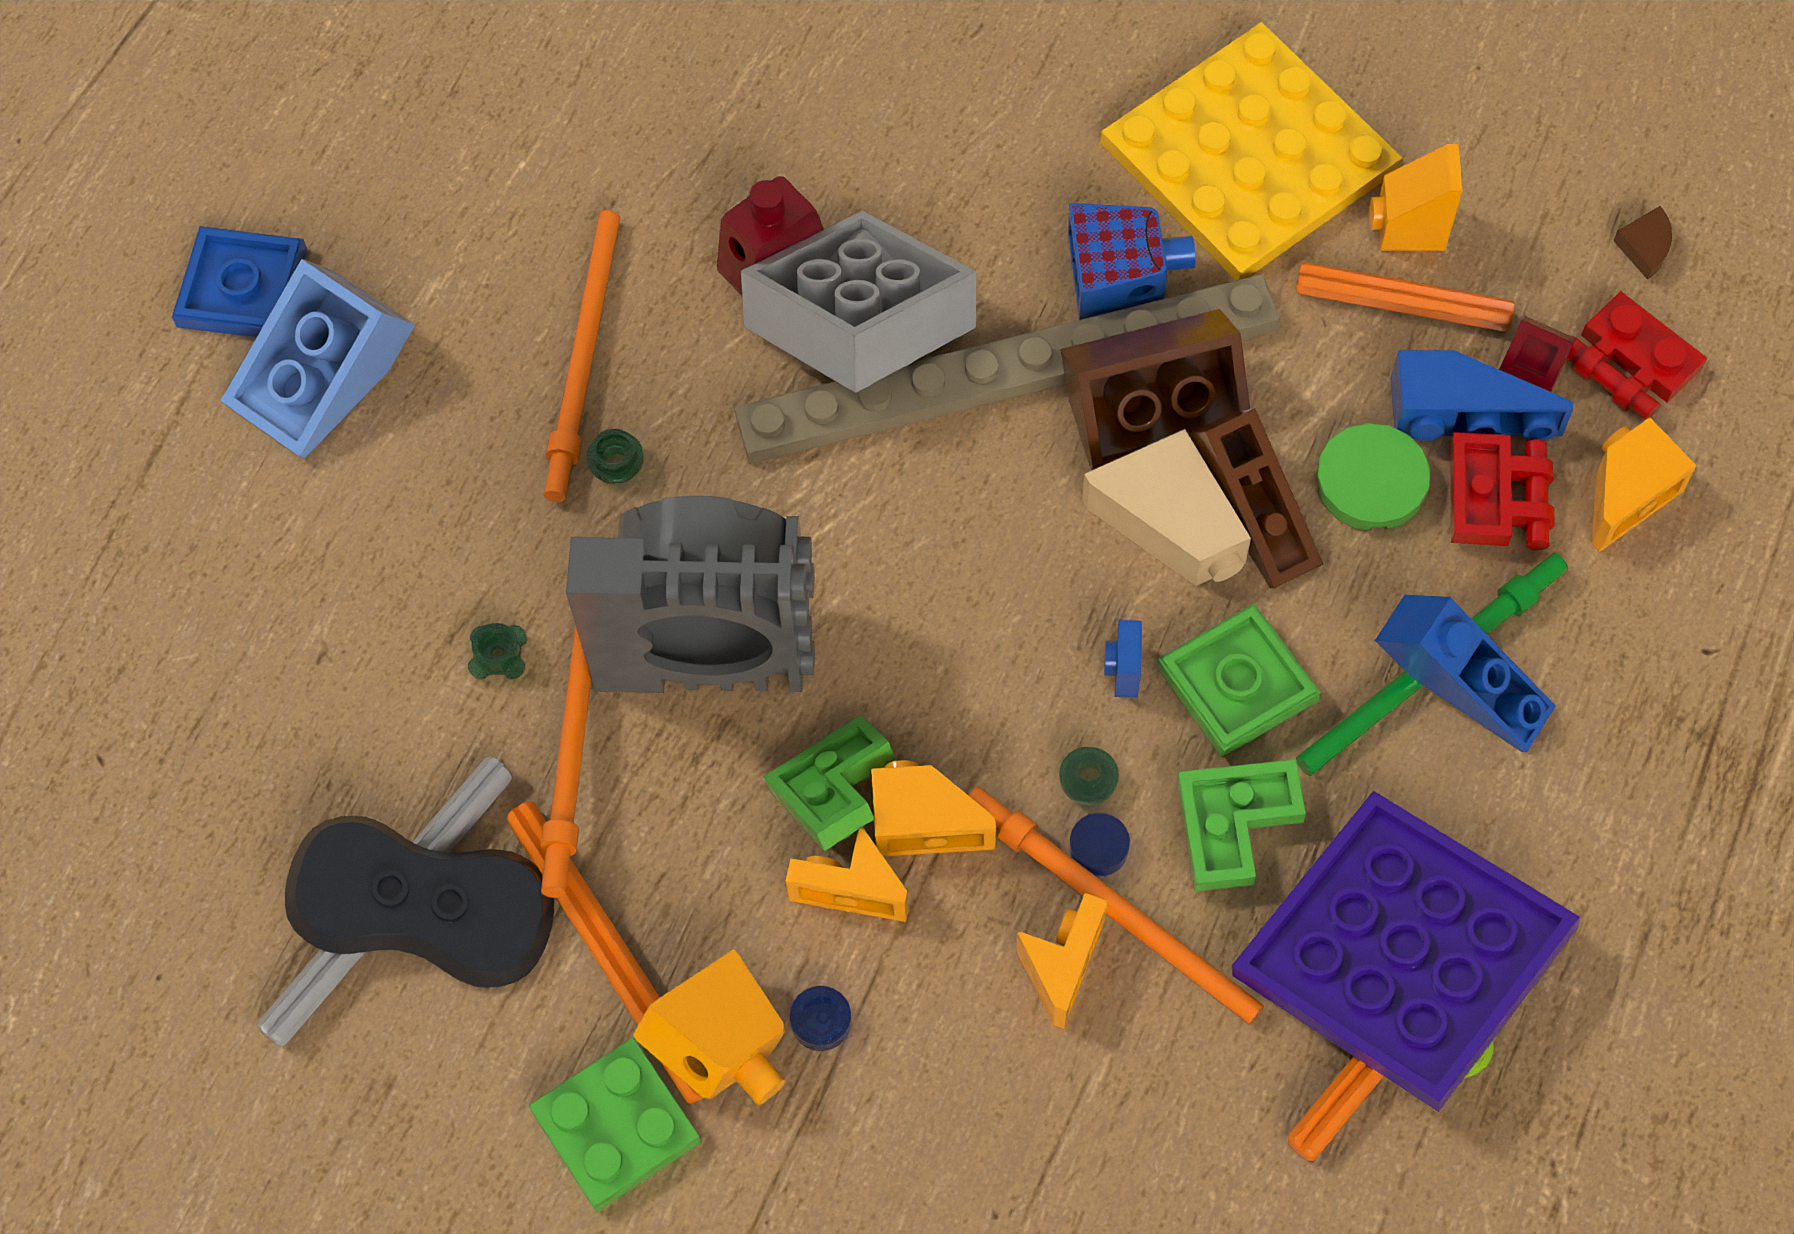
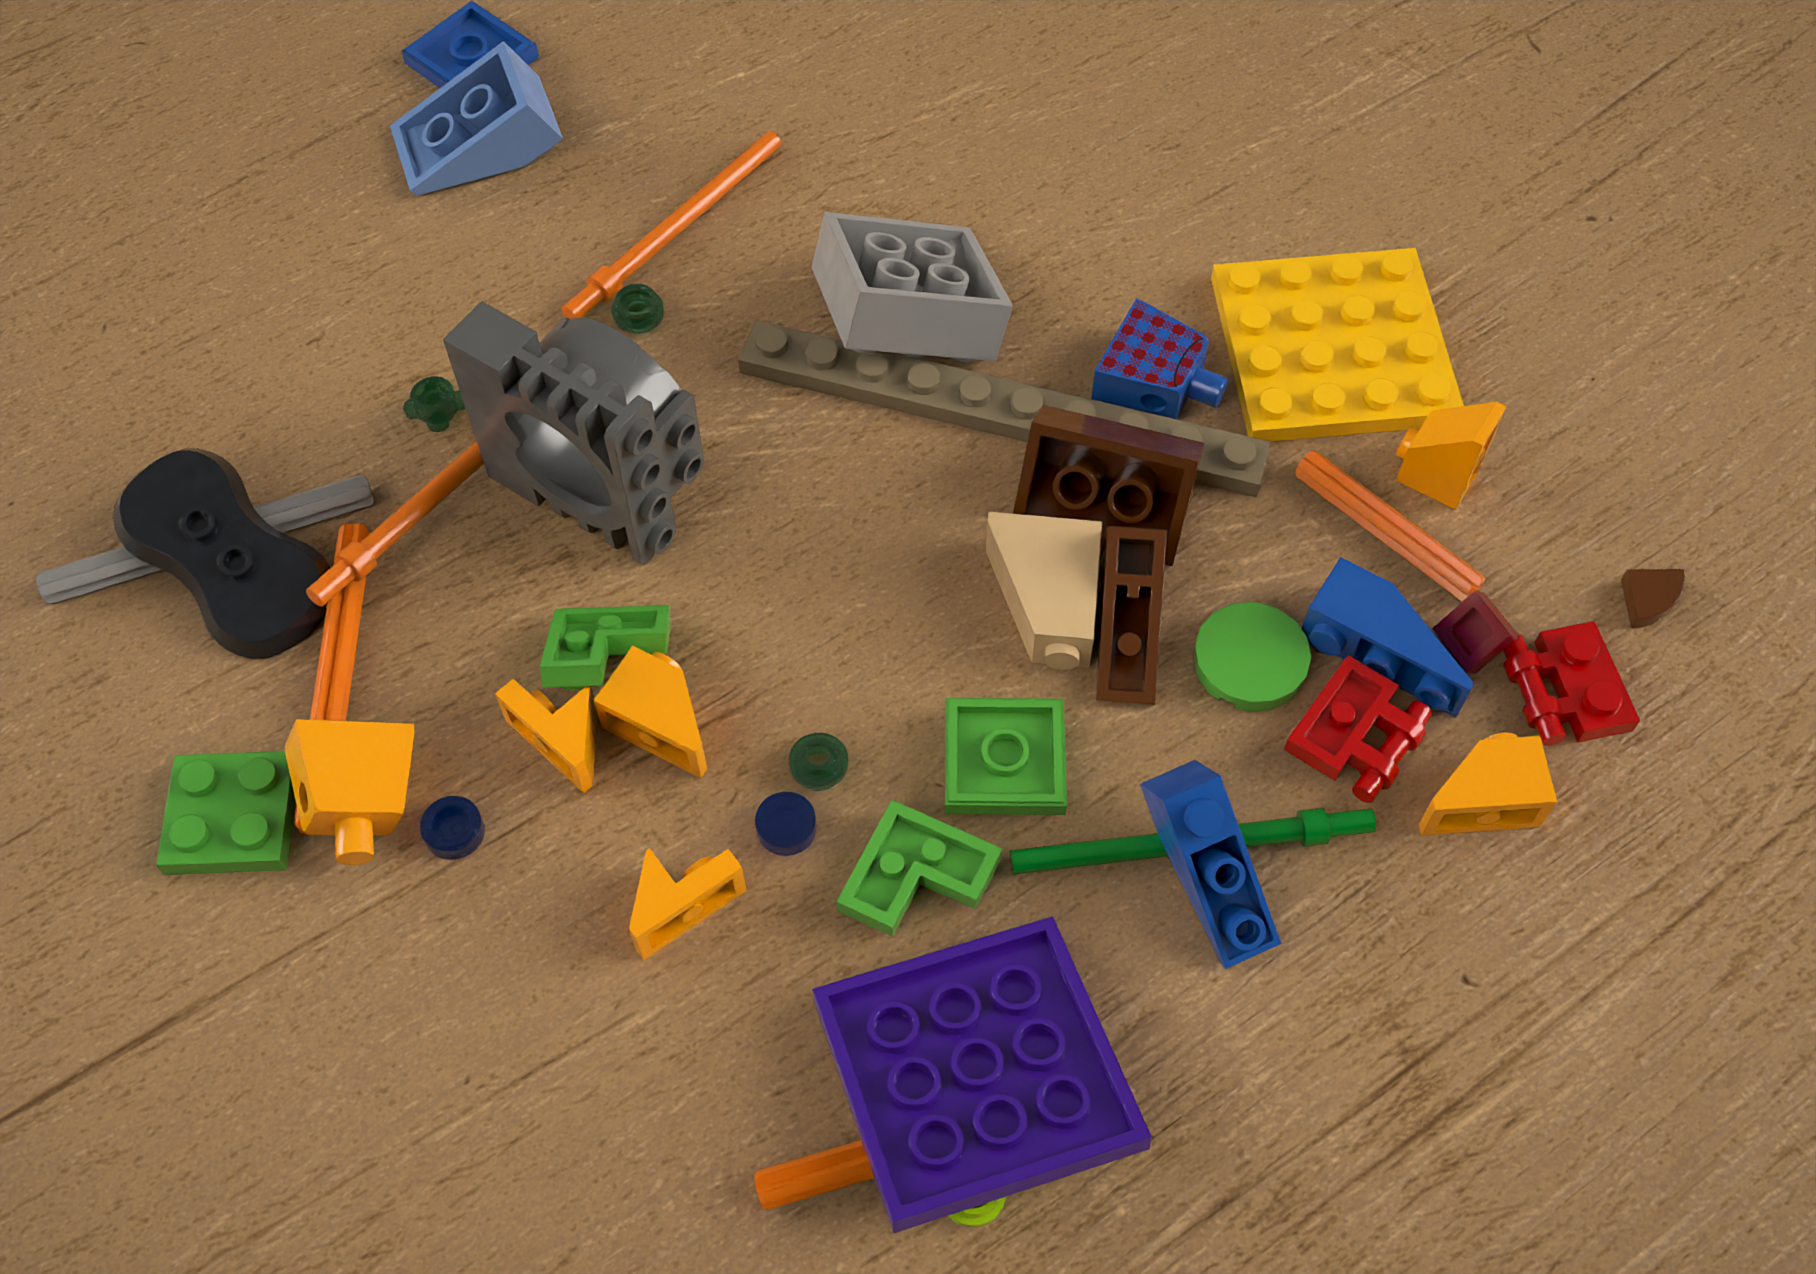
camera: 30 degrees right, 5 degrees down
(762, 226) = (877, 186): dark red torso -> none
(1020, 834) = (727, 776): orange bar -> none
(1124, 658) = (919, 682): blue plate -> none

